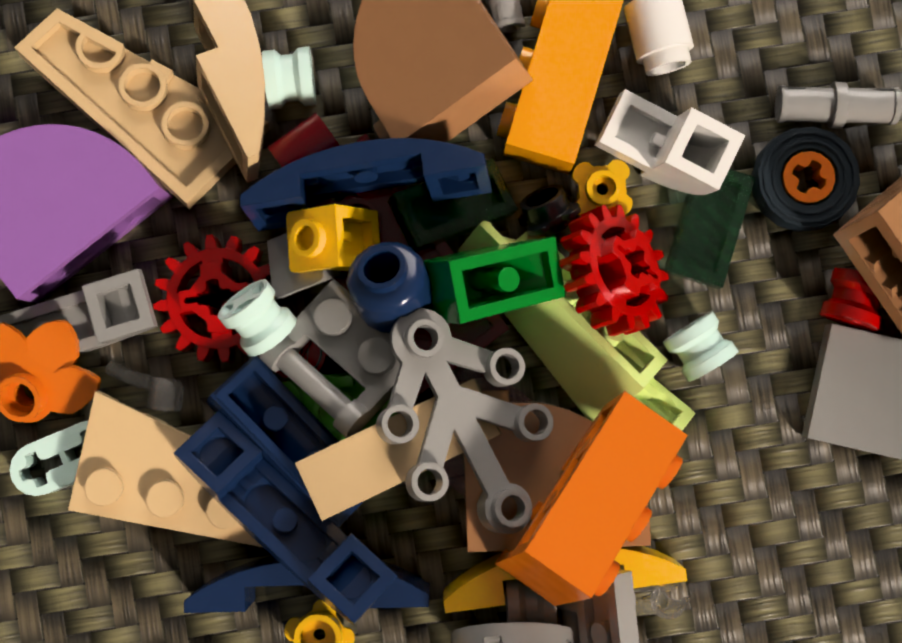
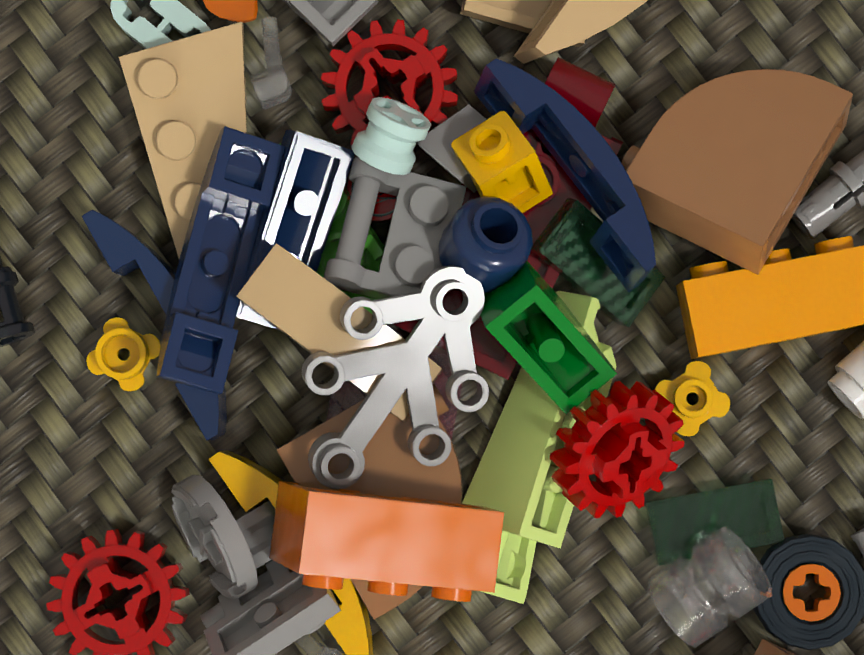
camera: 70 degrees right, 0 degrees up
(289, 77) = (637, 40): light aqua wheel -> none
(547, 211) = (641, 356): black plate -> none
(675, 151) = (765, 437): white brick -> none
(700, 346) = (589, 572): light aqua wheel -> none
(765, 260) = (703, 591): none -> clear wheel

